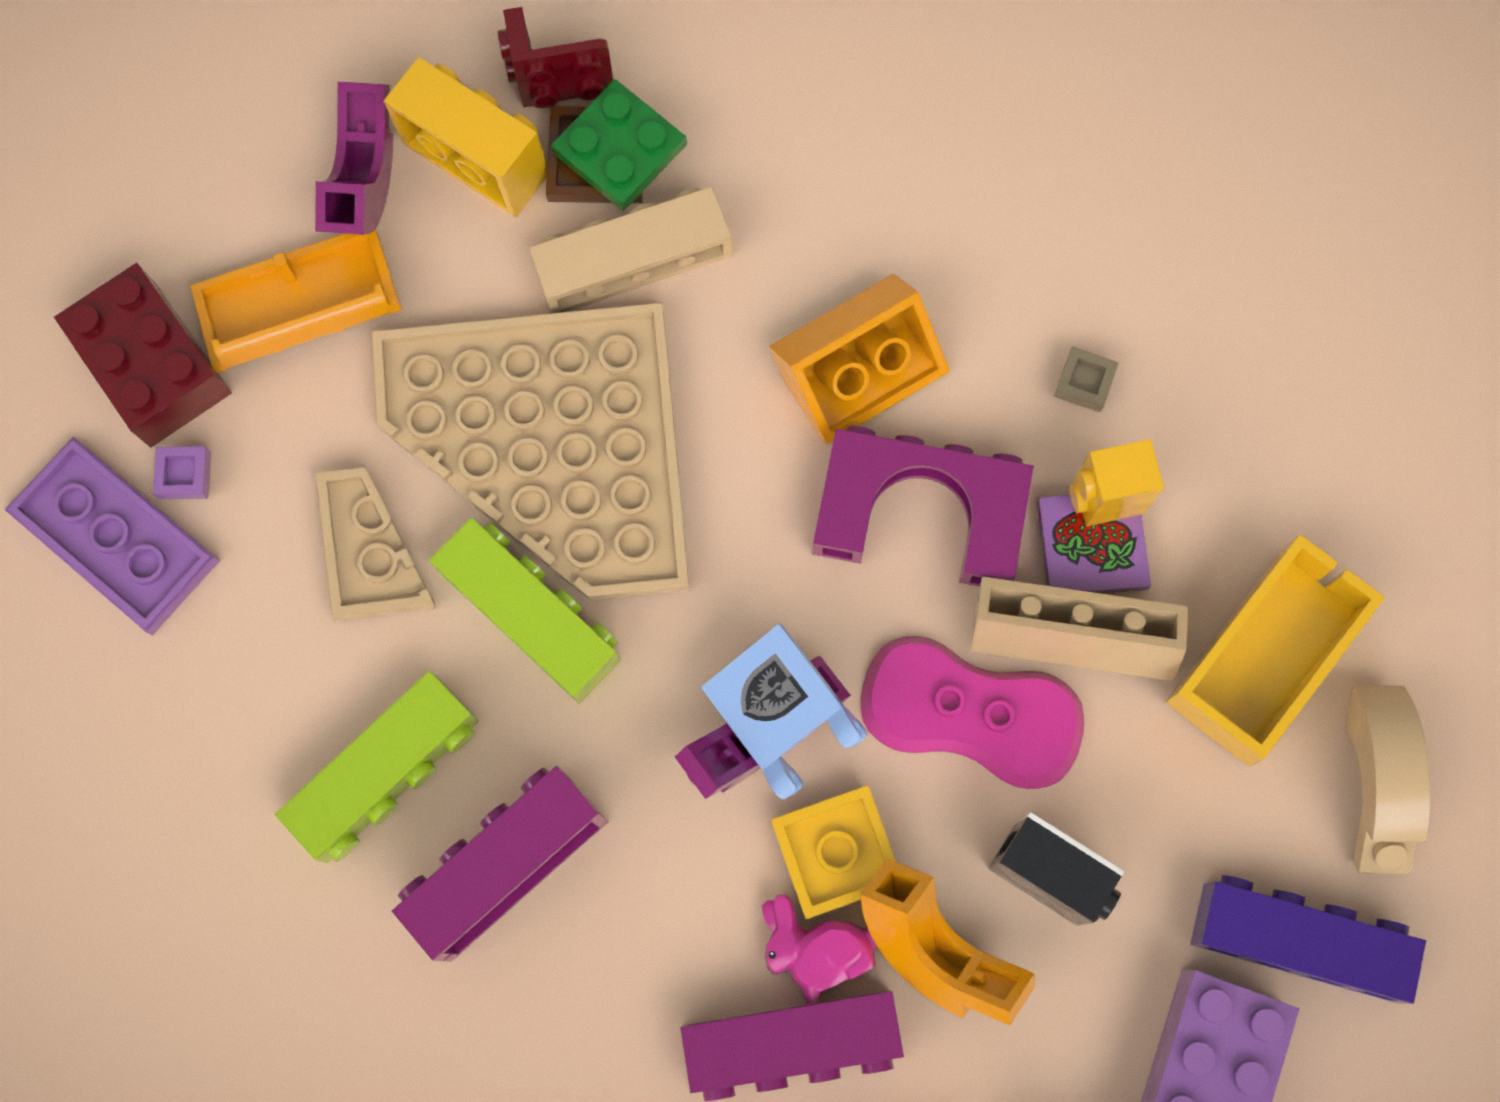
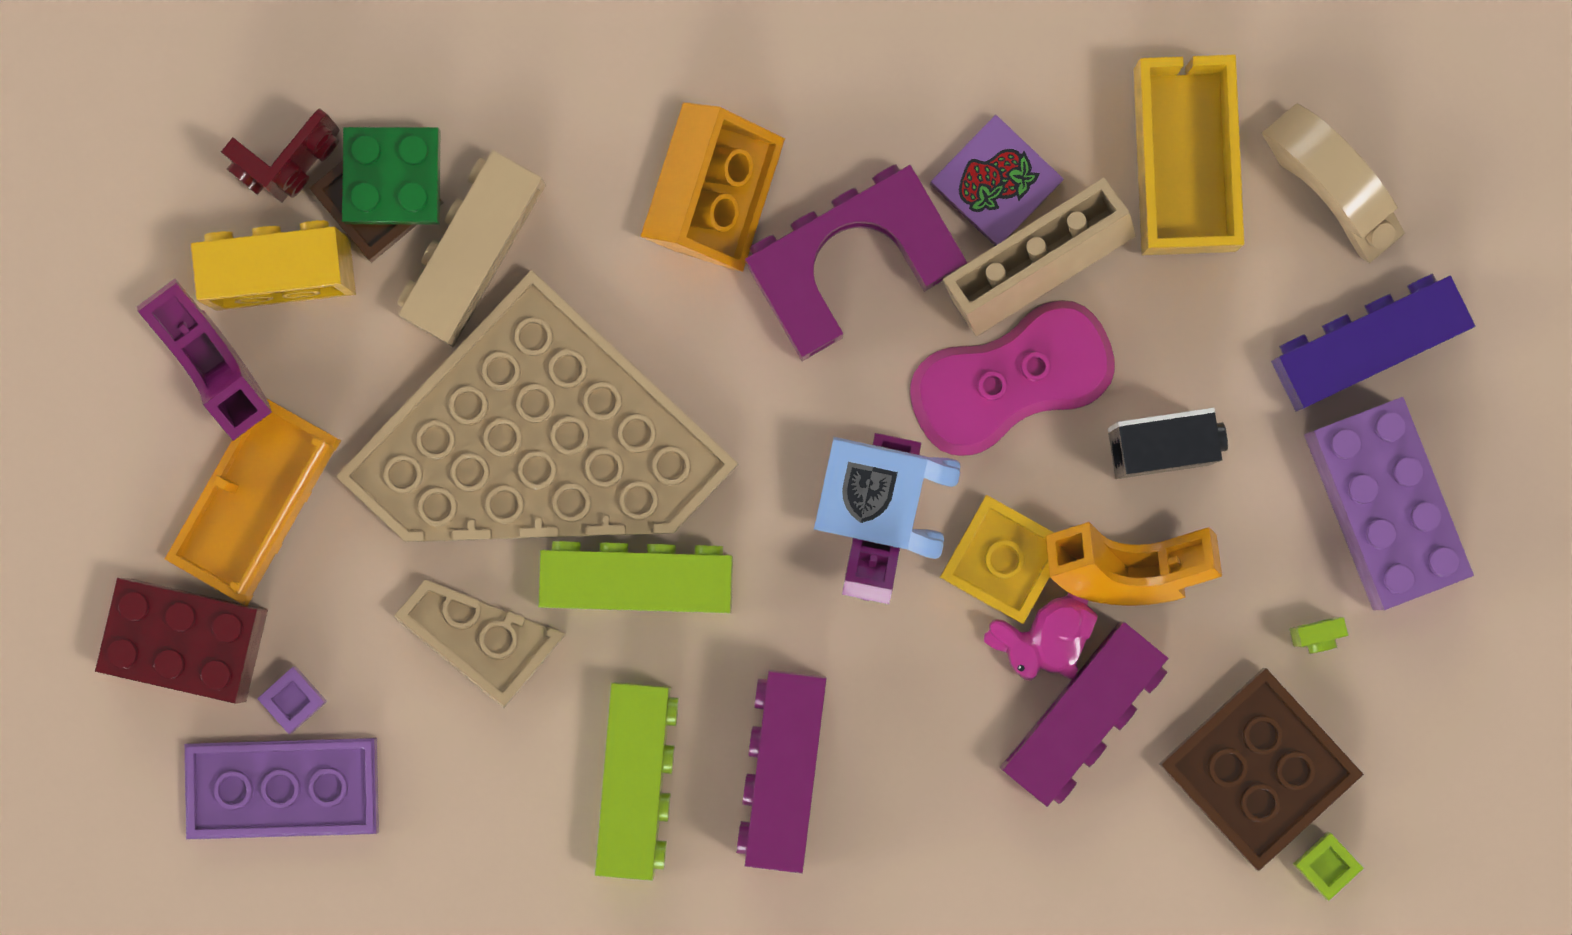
camera: 40 degrees left, 10 degrees up
(1086, 379) = (890, 61): dark tan plate -> none
(1117, 483) = (981, 130): yellow brick -> none

